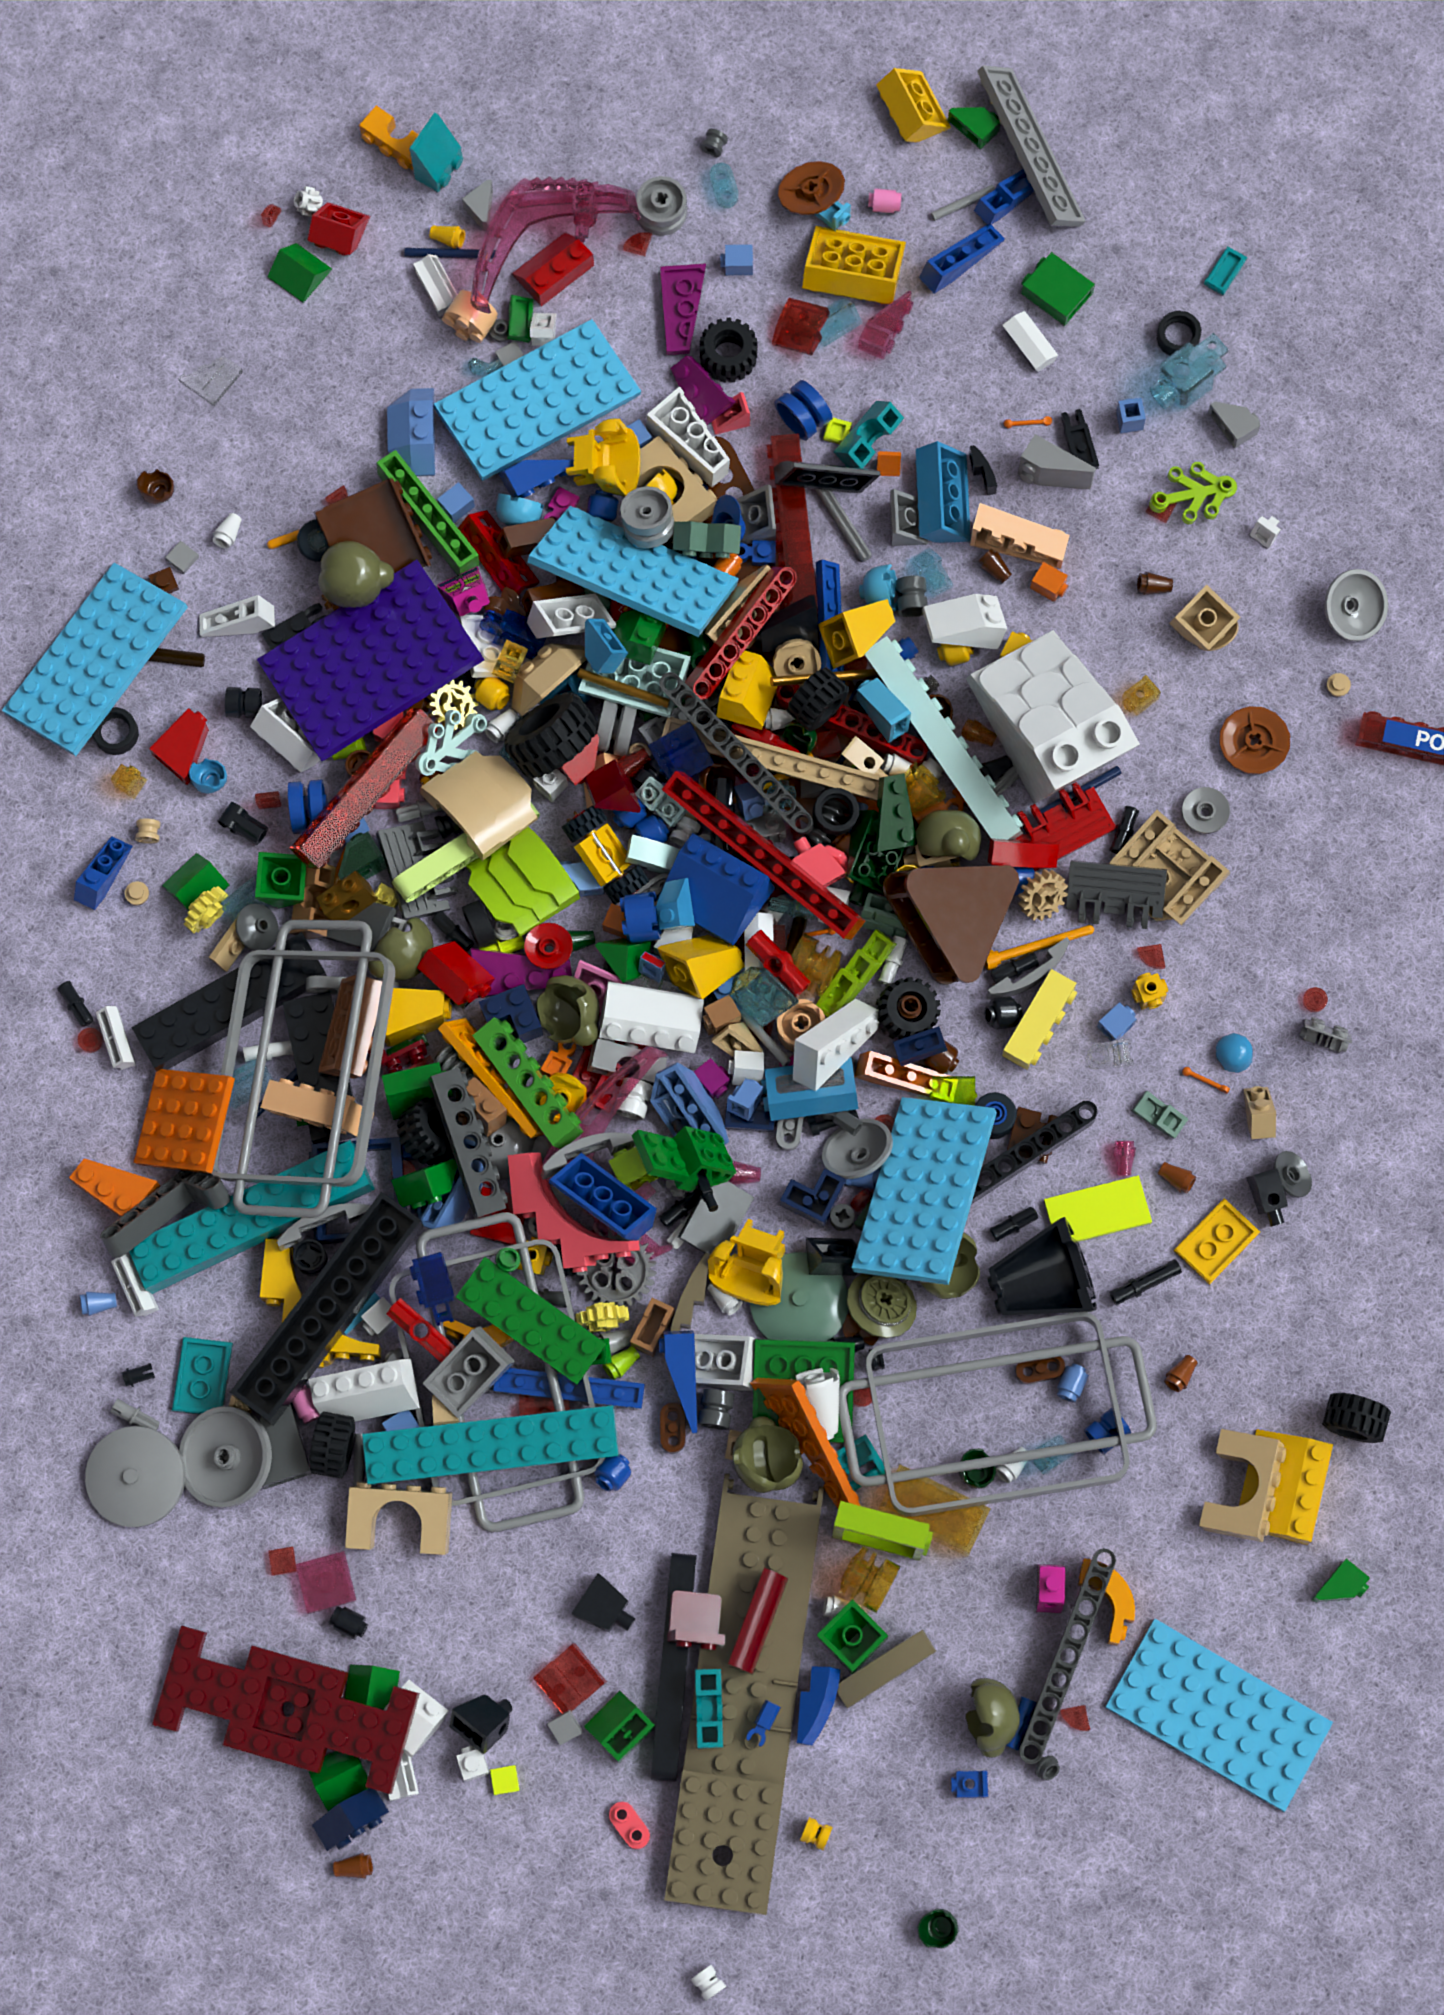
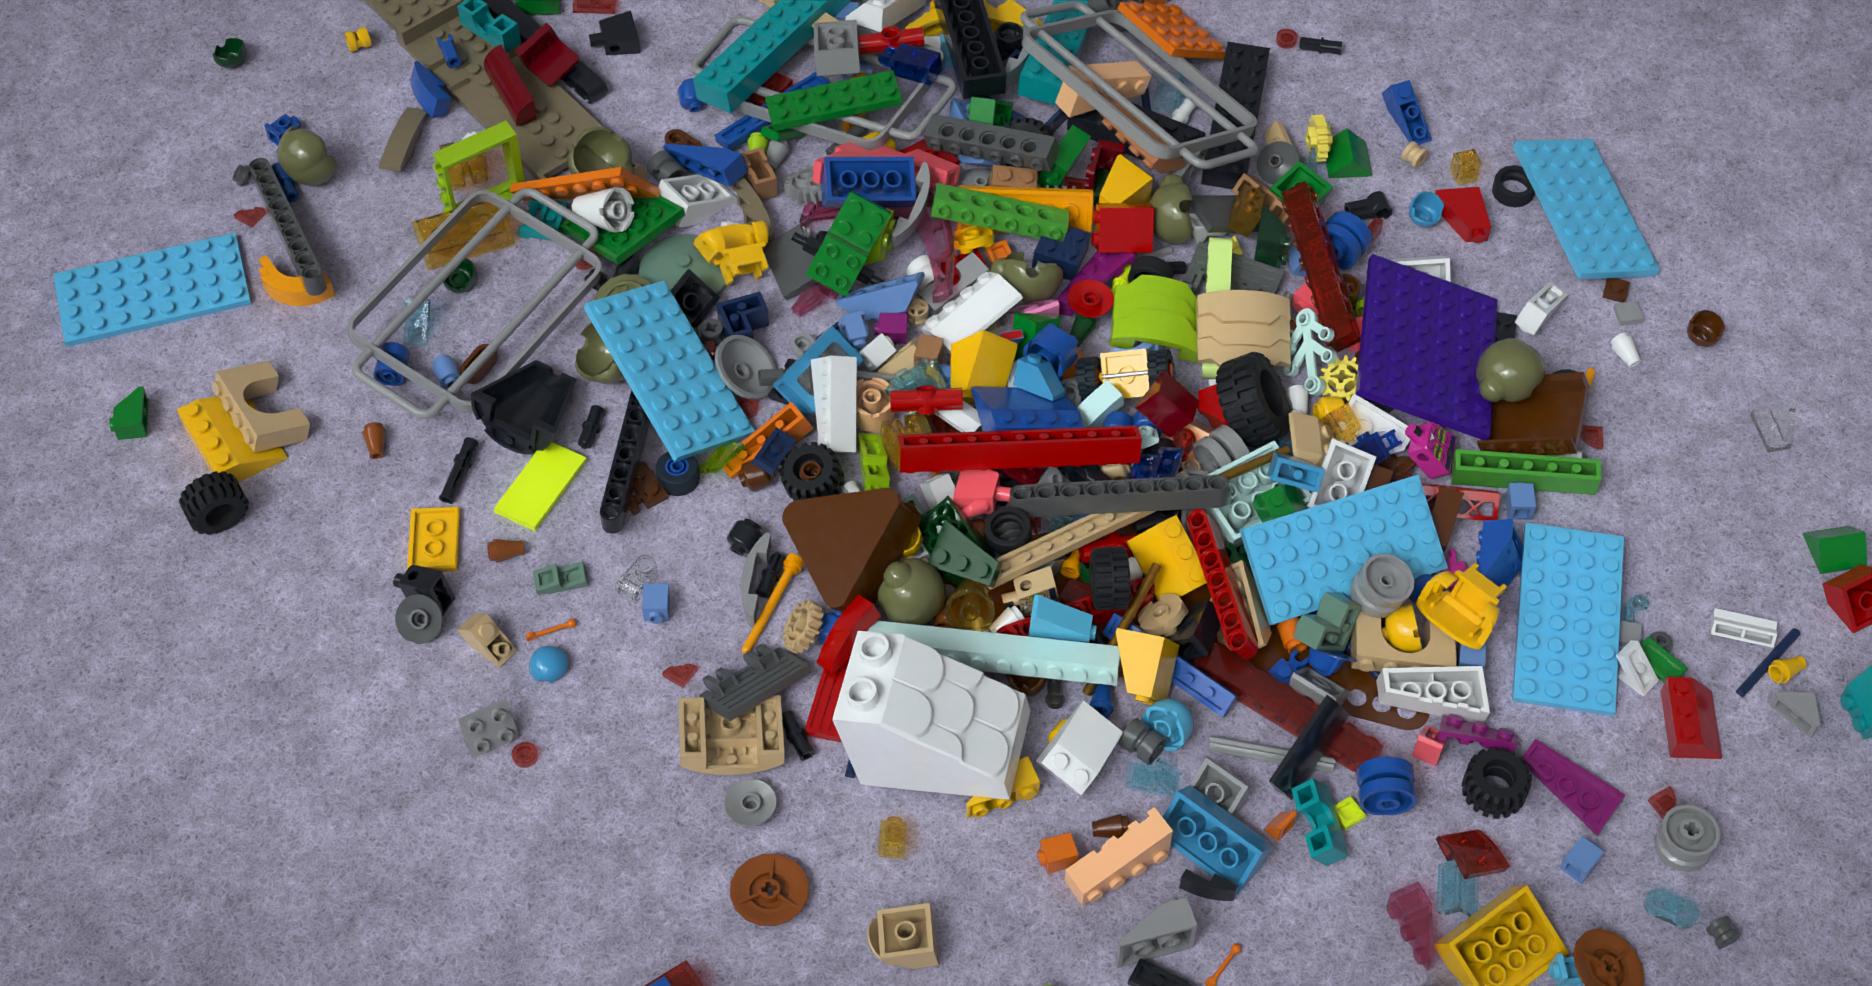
camera: 130 degrees right, 20 degrees down
(115, 1037) = (1280, 49): white piece -> none
(137, 893) = (1372, 124): tan plate -> none
(178, 657) = (1542, 258): dark brown axle -> none
(242, 702) = (1467, 264): black wheel -> none
(413, 430) = (1614, 515): medium blue wedge -> none
(467, 320) = (1688, 618): light nougat brick -> none
(507, 1259) = (885, 108): green plate -> none
(517, 510) = (1467, 529): medium azure cylinder -> none
(561, 198) = (1764, 729): clear pink piece -> none
(602, 1317) = (795, 149): light yellow gear -> none
(852, 1636) = (439, 127): green slope -> none
(1011, 1471) = (439, 301): white cone -> none
(1039, 1019) = (713, 553): light yellow brick -> none
(1050, 1588) = (332, 251): dark pink torso -> none
(1124, 1157) = (559, 530): clear pink cone -> none
(1149, 998) = (654, 641): yellow brick -> none
(1153, 584) = (980, 932): reddish brown cone -> none

